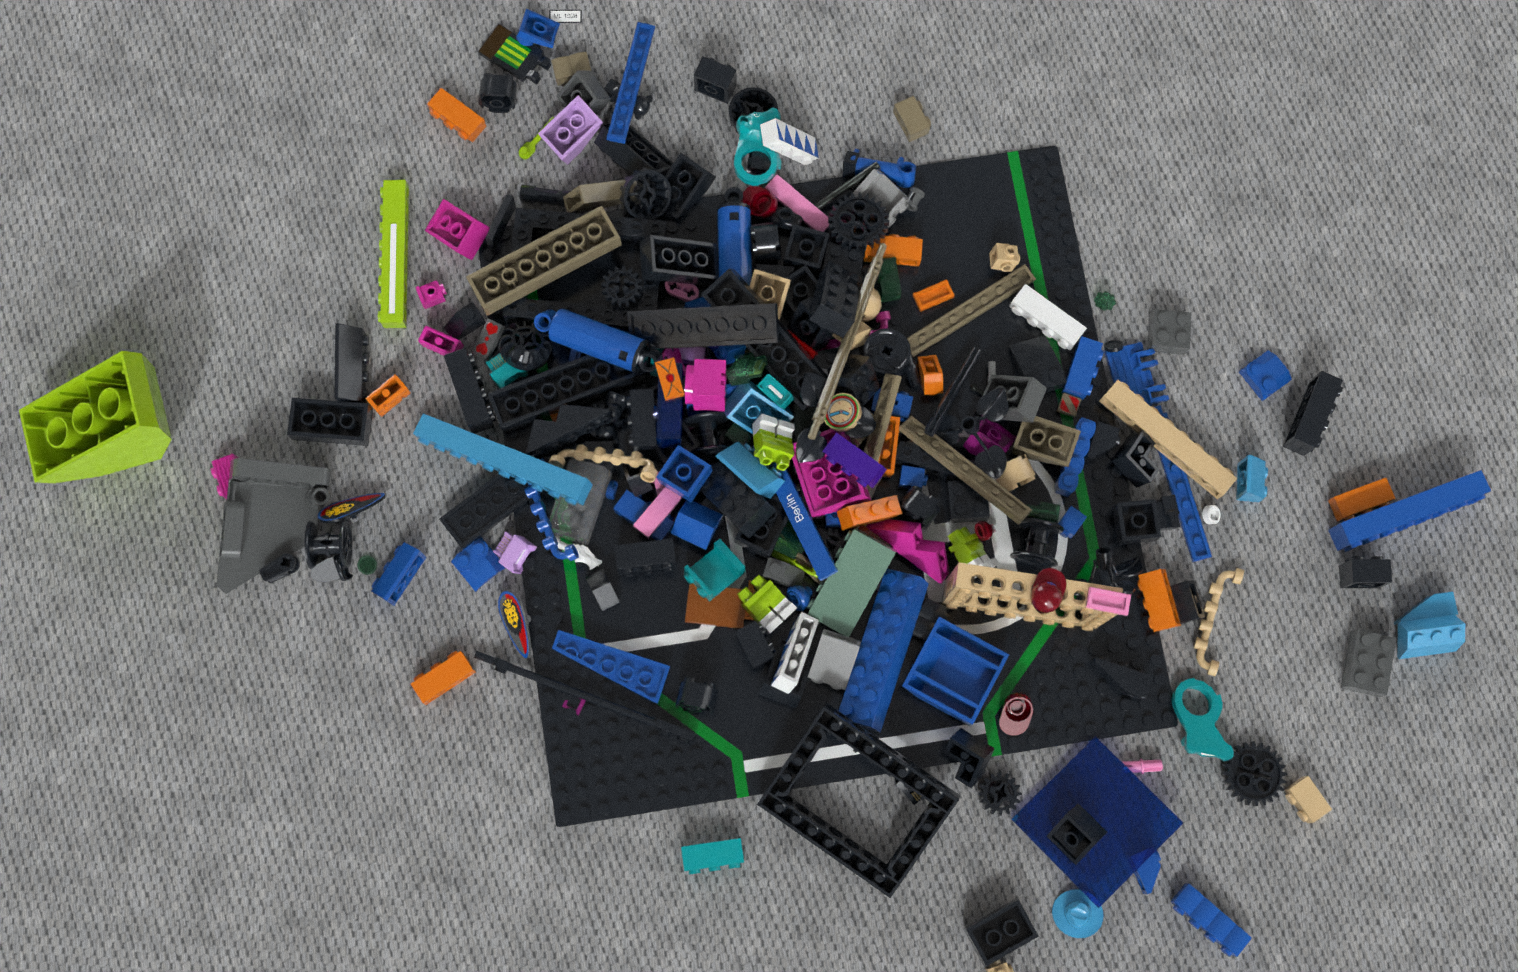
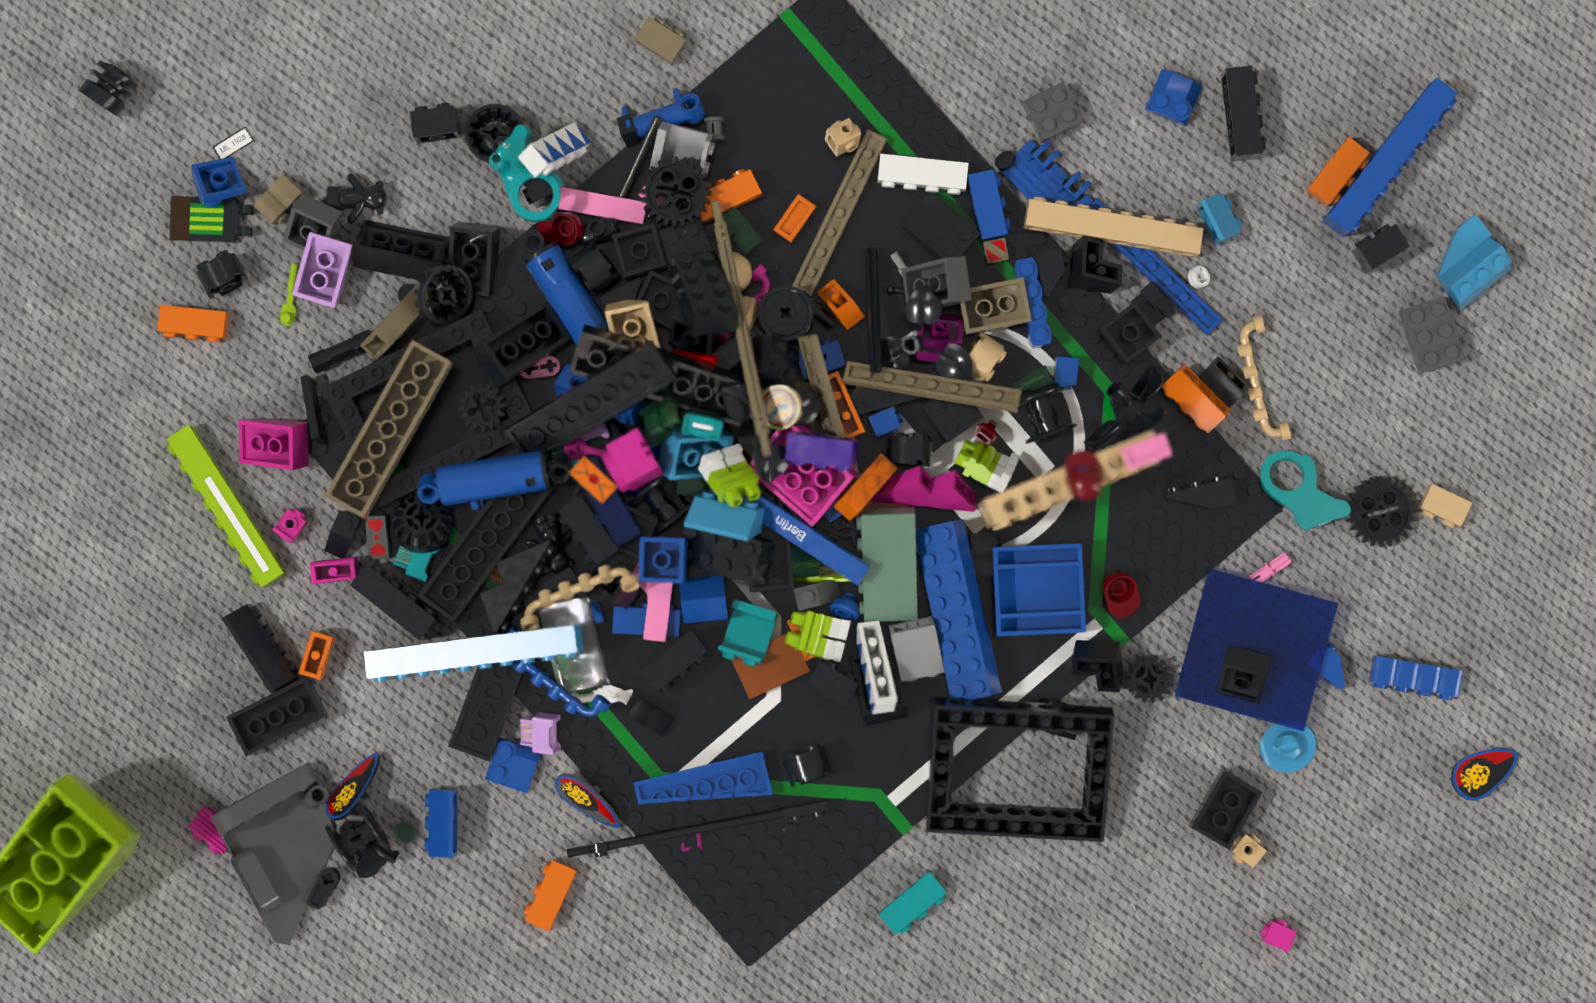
camera: 25 degrees left, 10 degrees up
(631, 83) = (351, 180): blue tile -> none
(1105, 301) = (969, 118): clear green plant -> none

